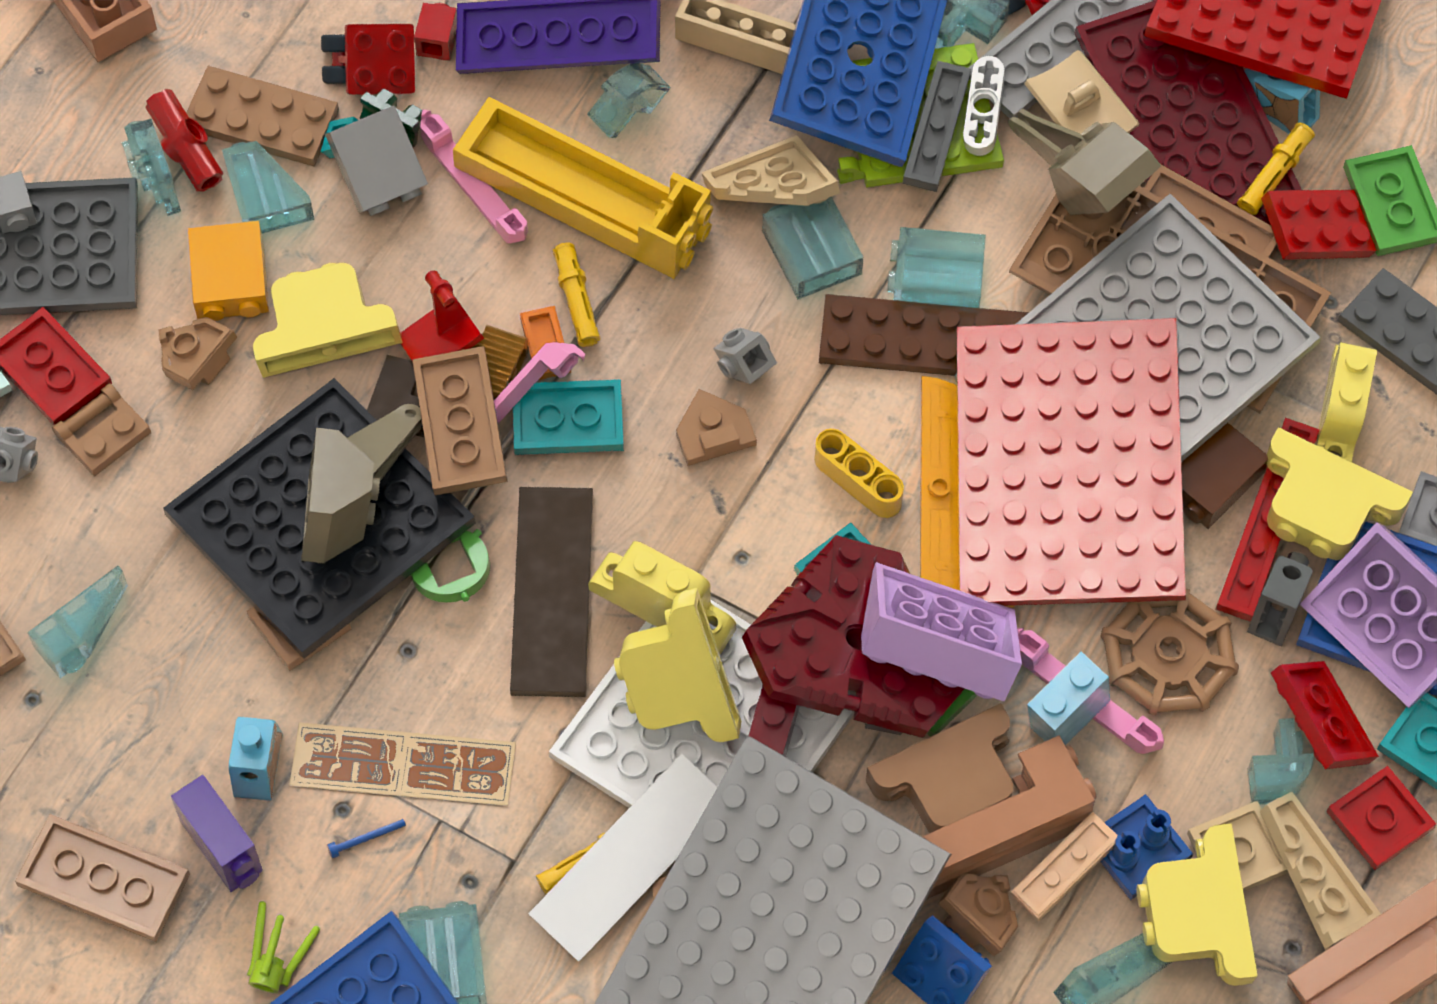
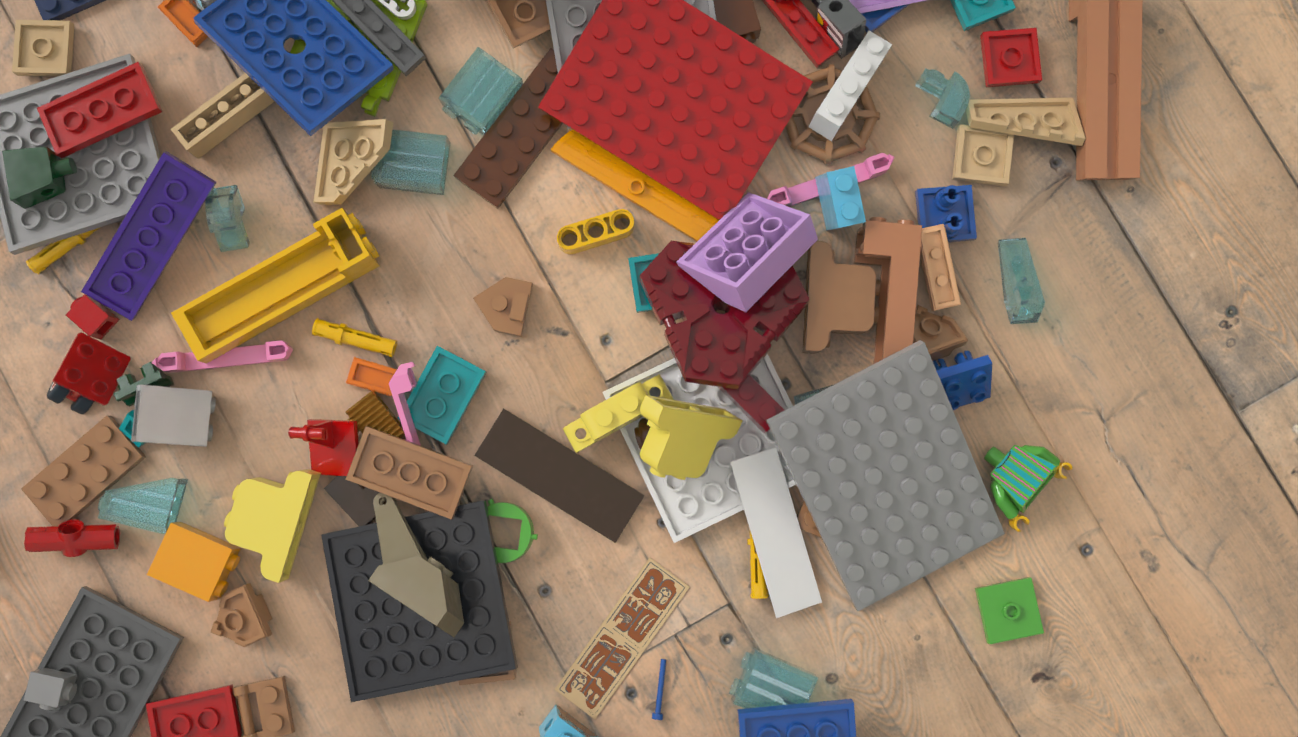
camera: 60 degrees left, 20 degrees up
(149, 164) = (76, 572): clear light blue plate -> none
(744, 355) = (470, 255): light grey brick -> none
(1175, 640) = (849, 85): none -> white arch
(1200, 909) = (1014, 202): light yellow brick -> none
(1324, 715) = (931, 48): red plate -> none

